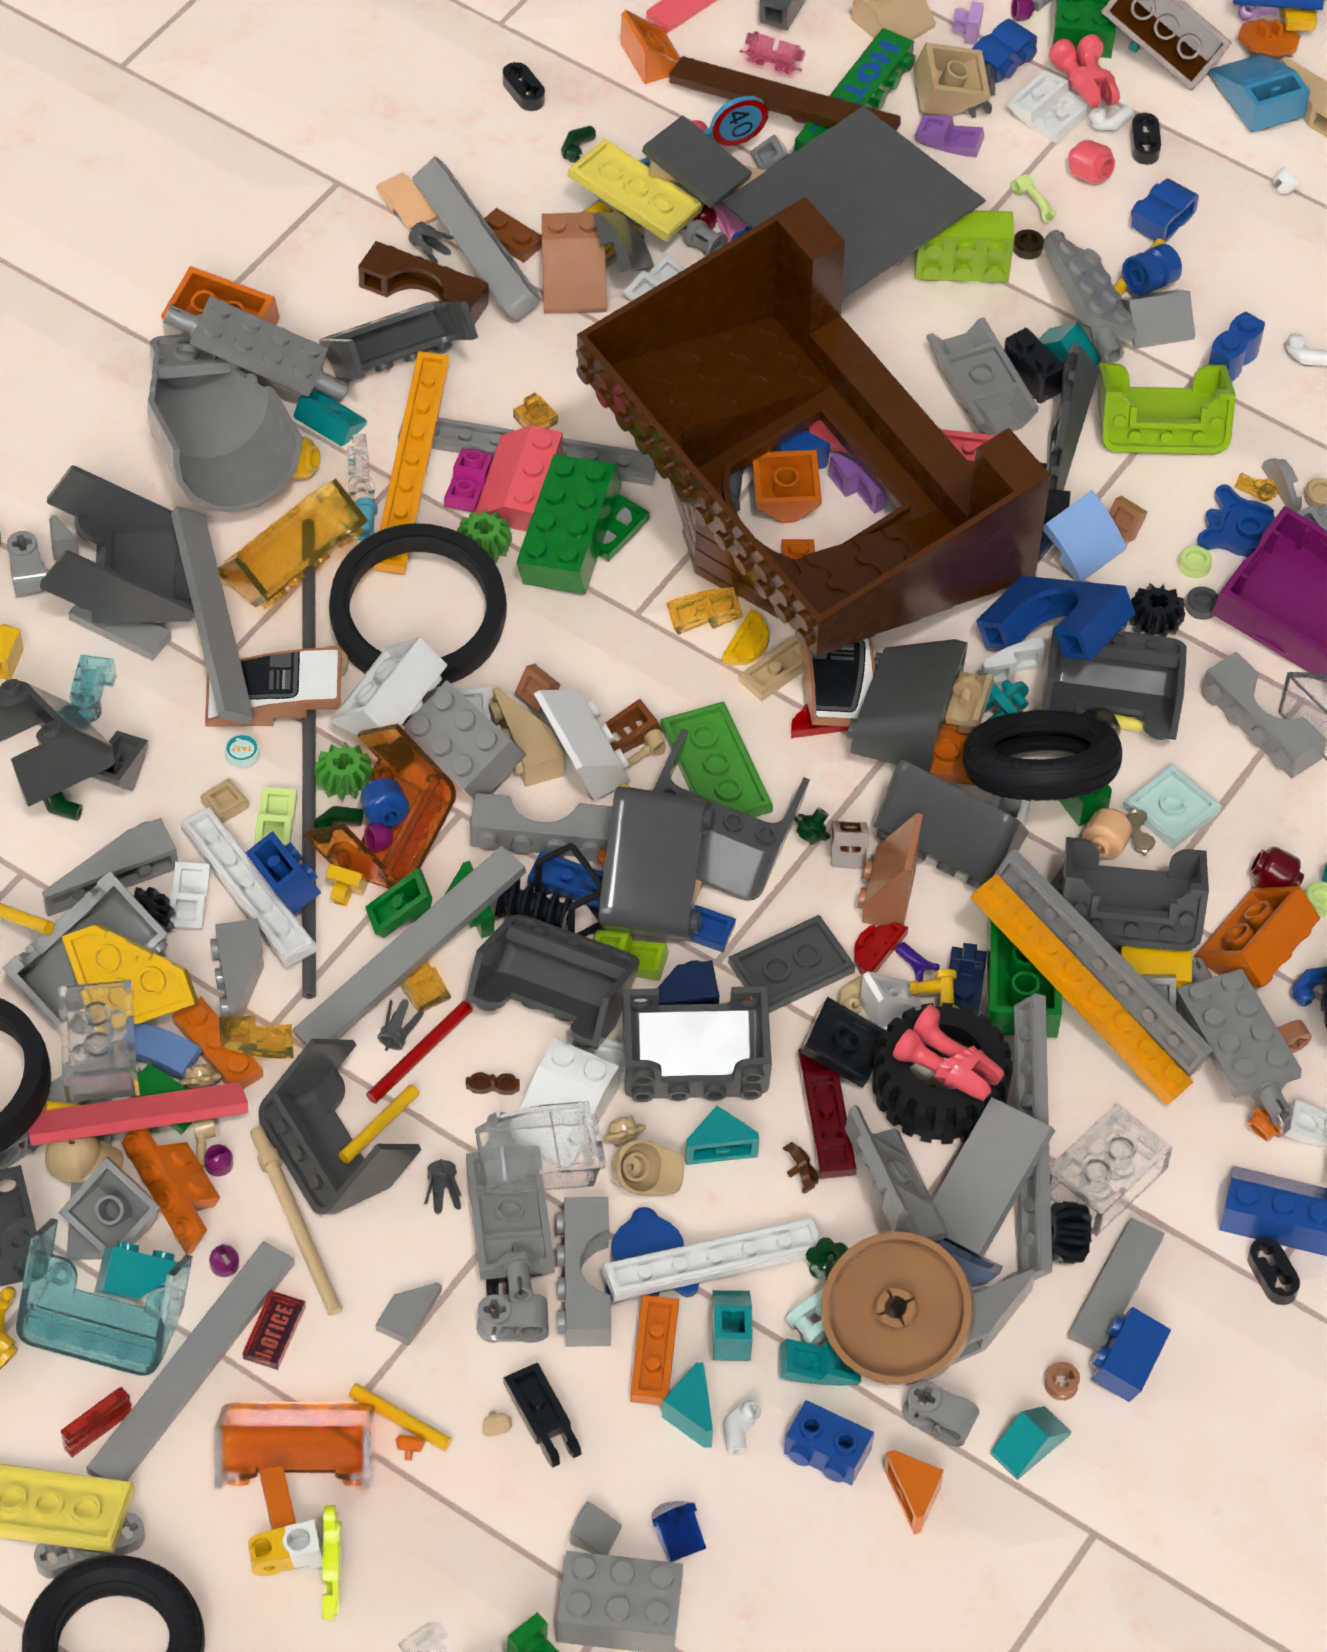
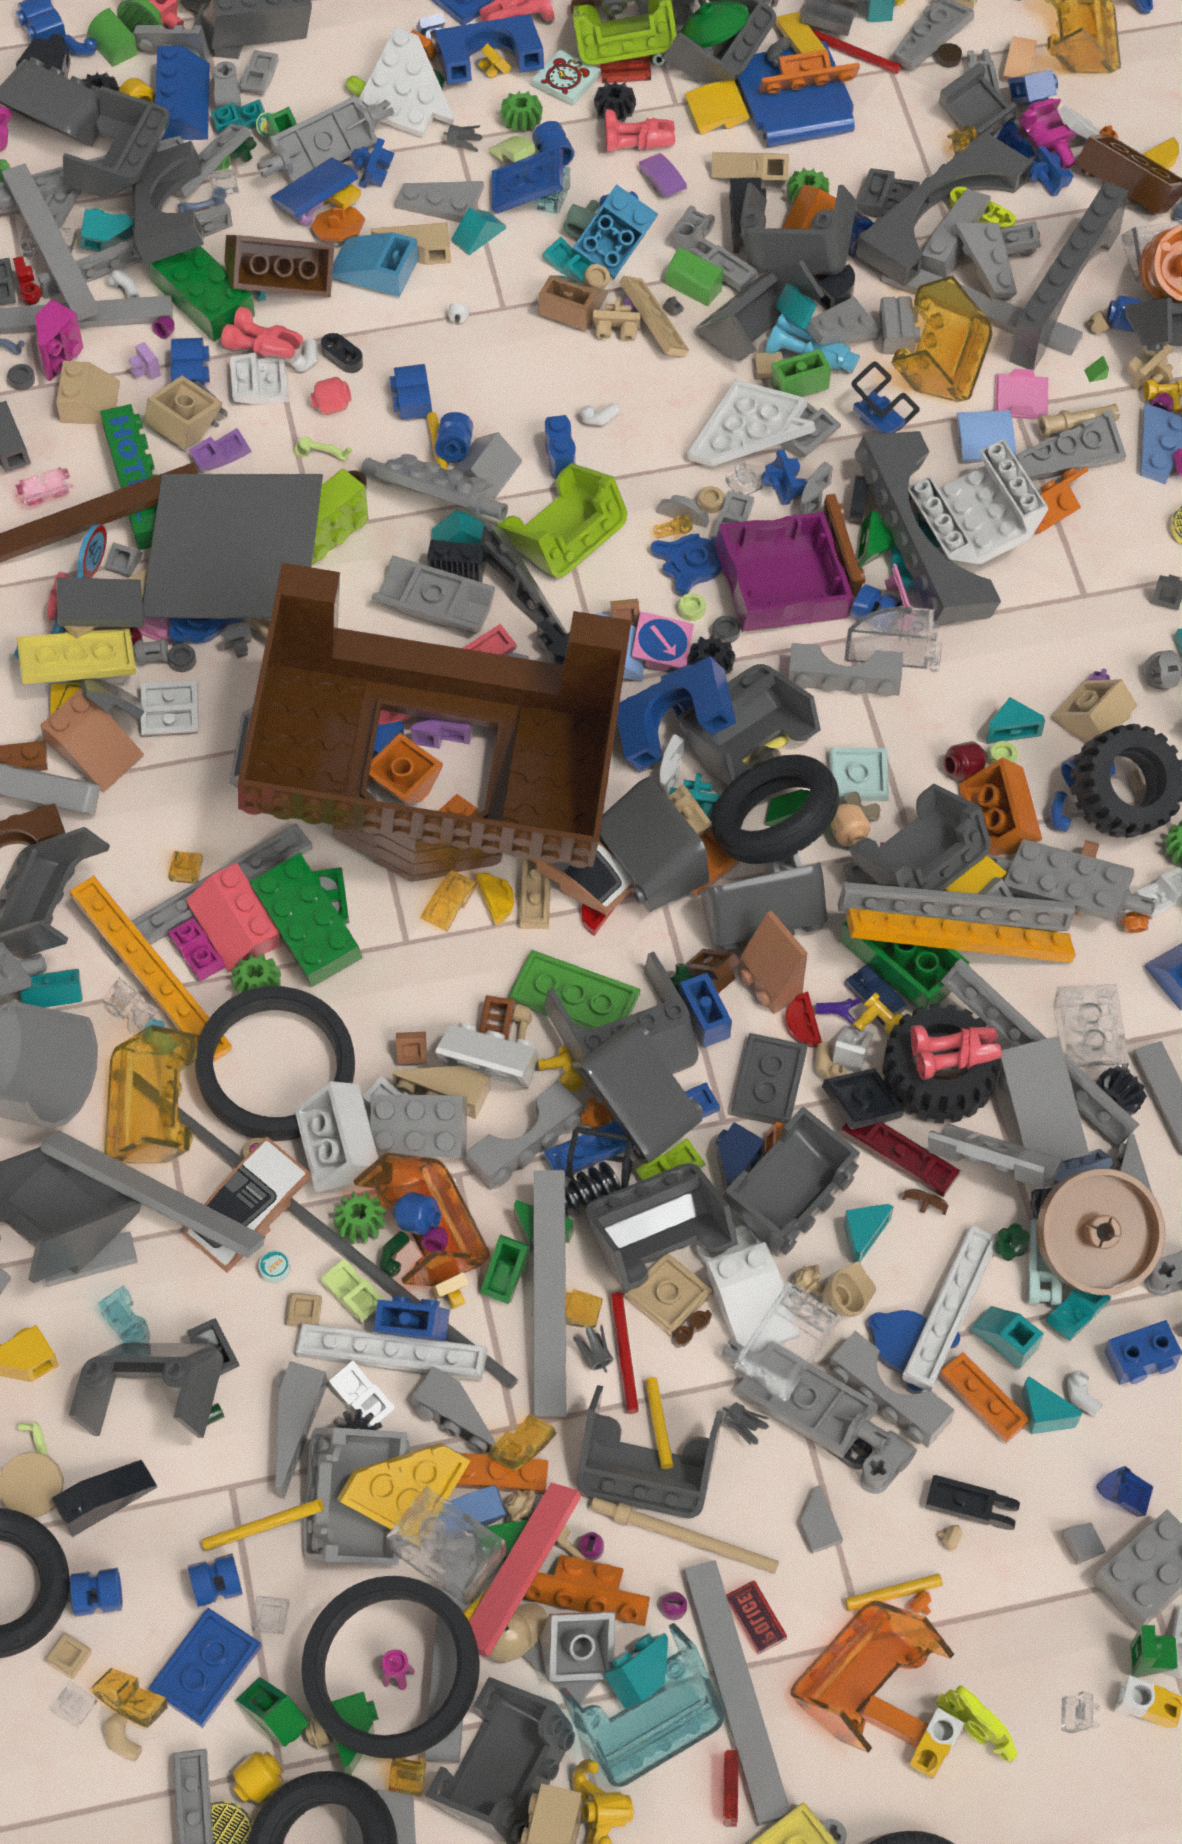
camera: 45 degrees left, 5 degrees up
(507, 1041) = (669, 1294): none -> tan tile
(799, 861) = (706, 1010): none -> blue brick
(1130, 561) = (662, 641): none -> piece

